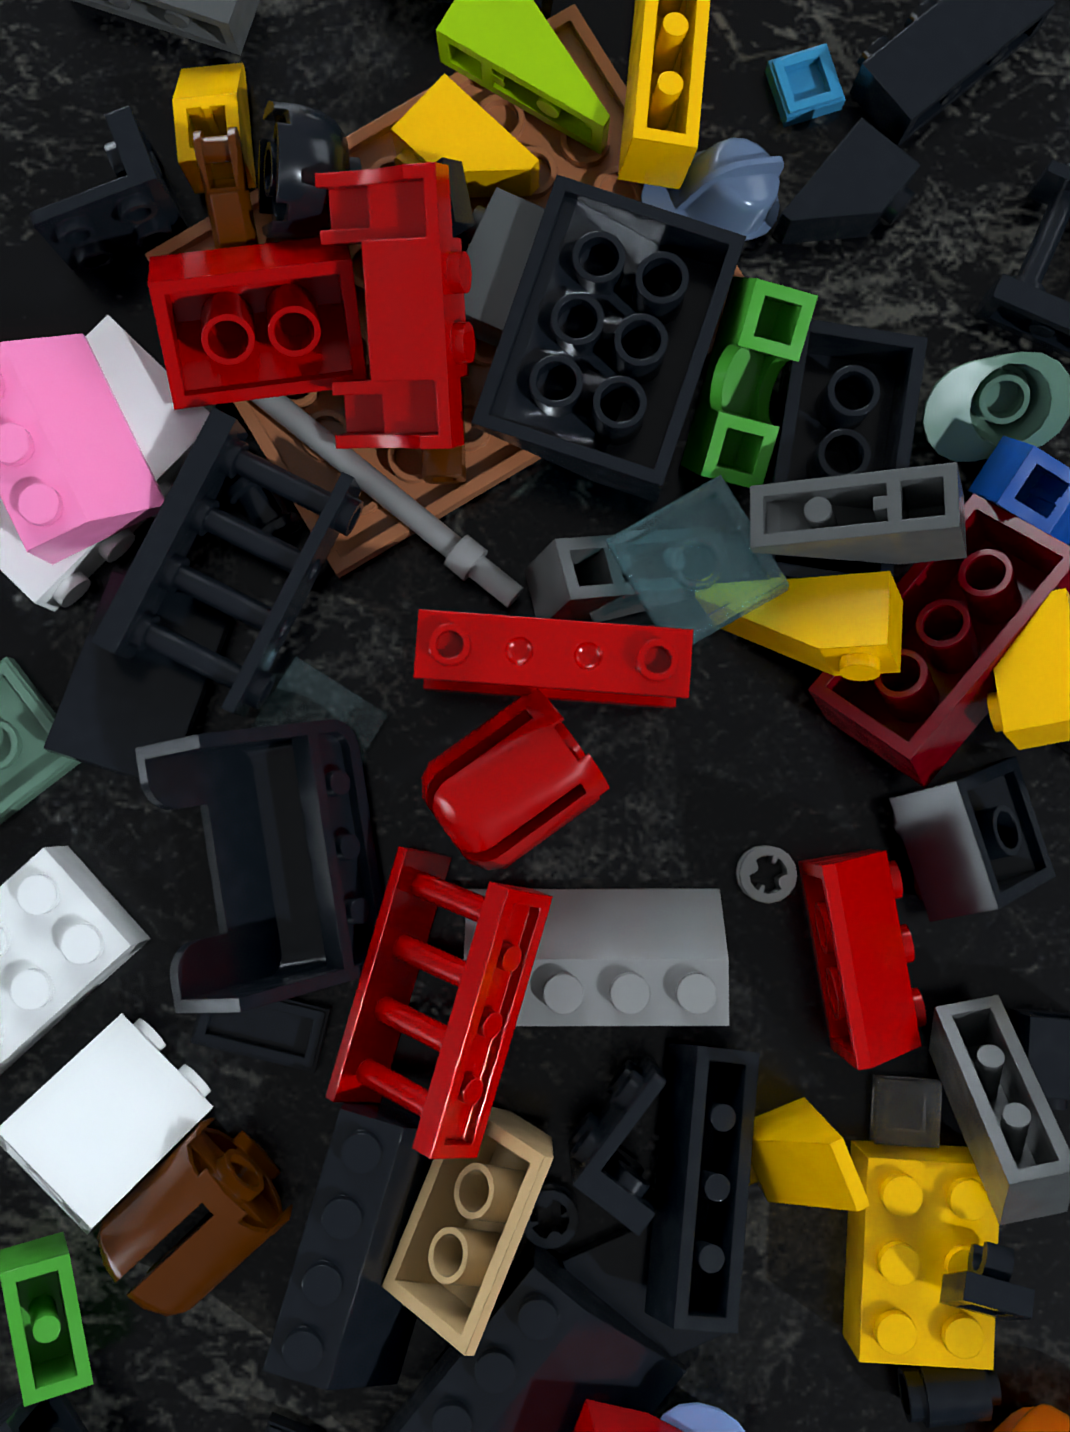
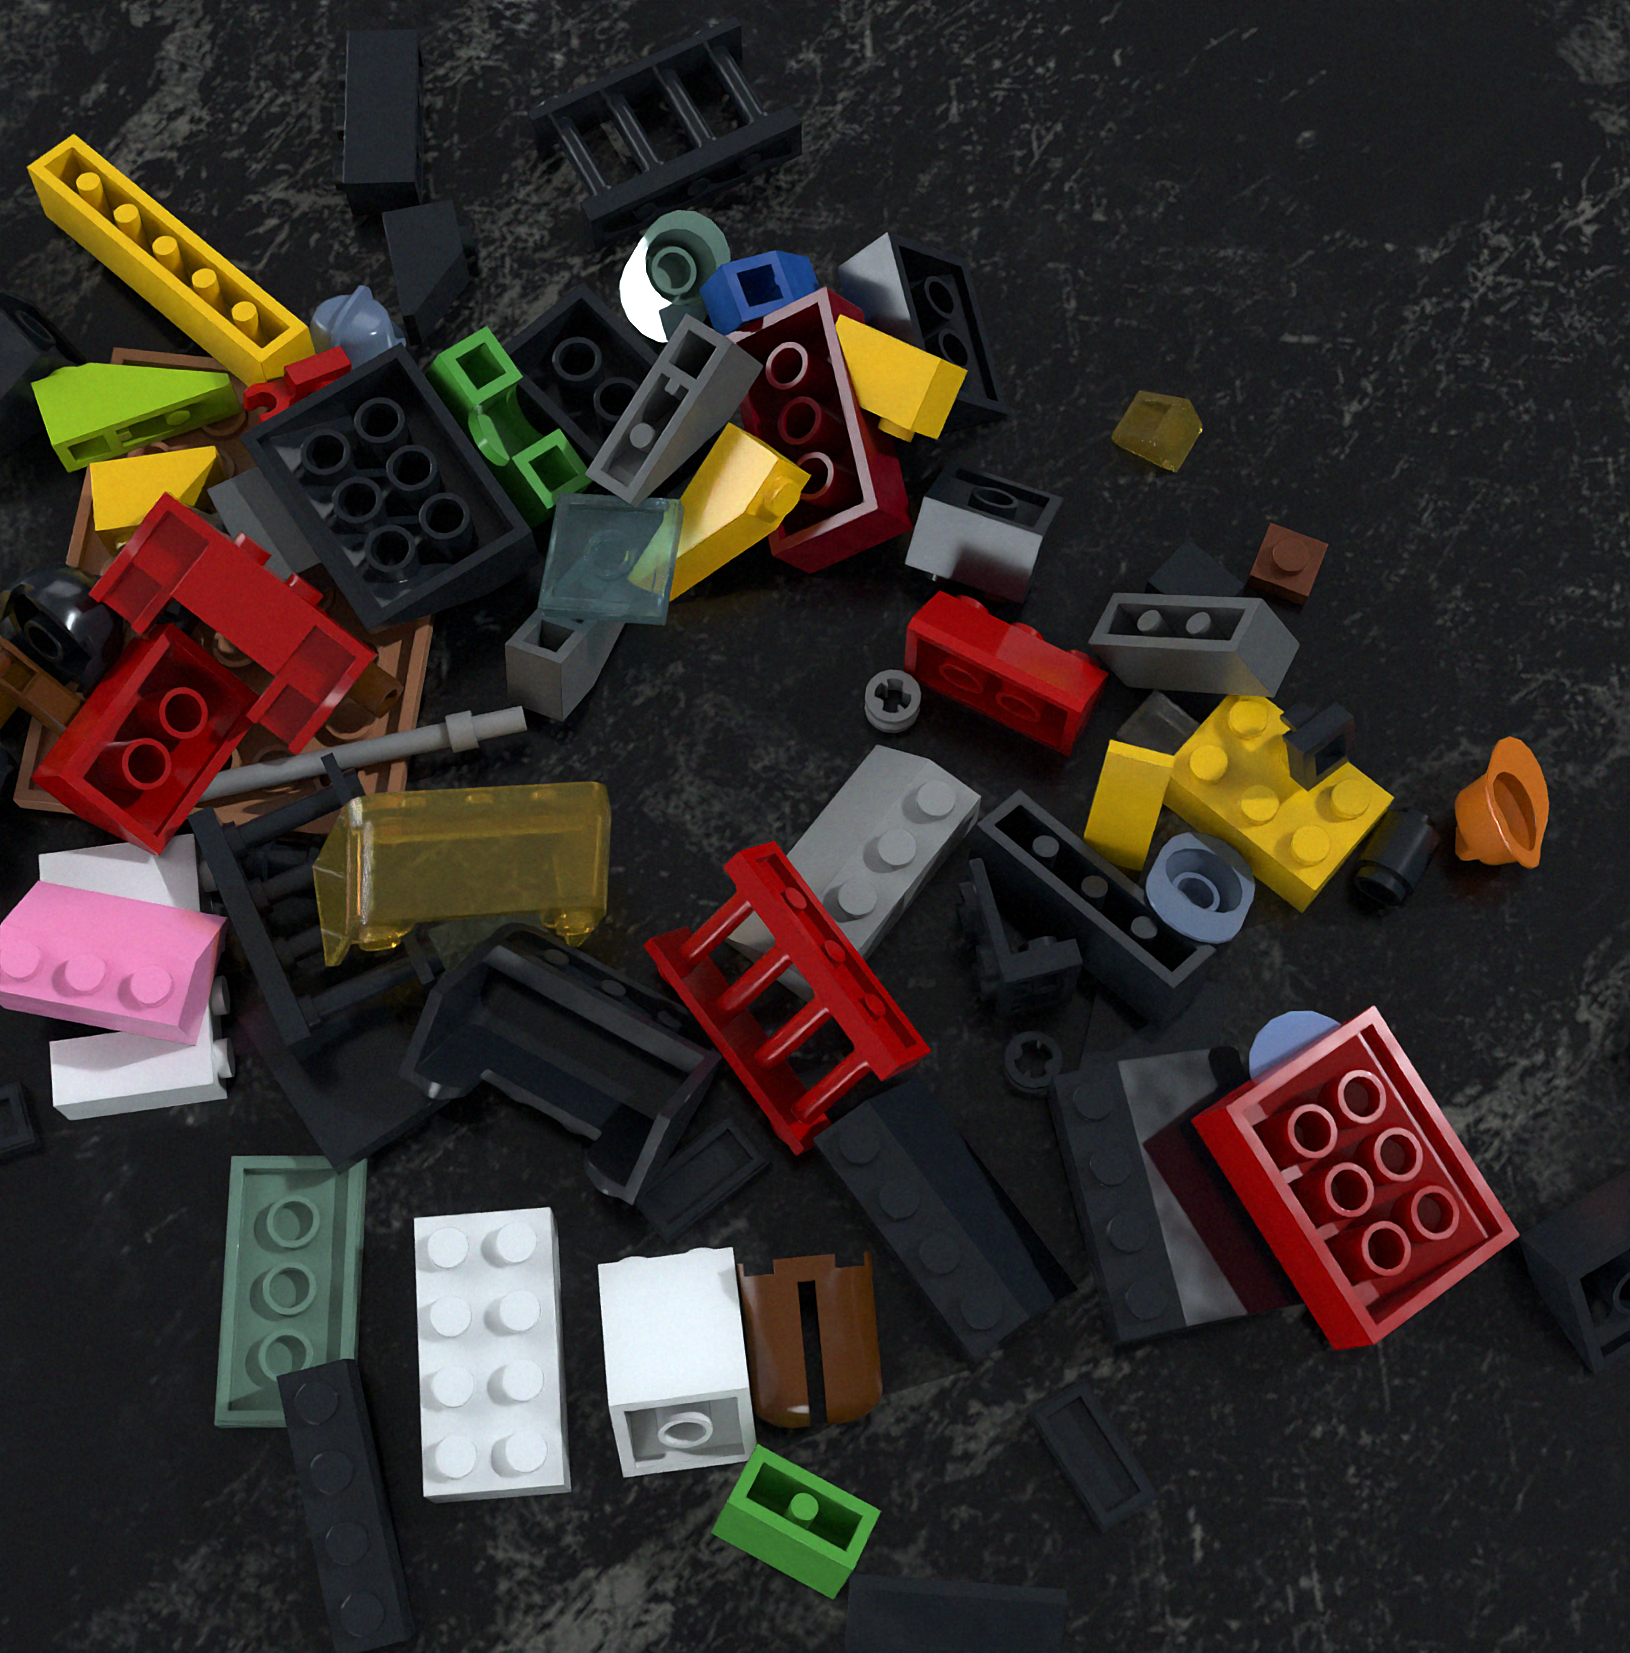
camera: 50 degrees left, 15 degrees down
(324, 676) = (463, 858): none -> clear yellow windscreen
(470, 1229) = (985, 1107): tan slope -> none
(511, 783) = (667, 820): red cylinder -> none
(555, 655) = (605, 701): red fence -> none
(646, 182) = (298, 382): none -> red plate
(787, 1265) = (1201, 887): none -> sand blue piece
(805, 85) = (319, 239): dark azure tile -> none

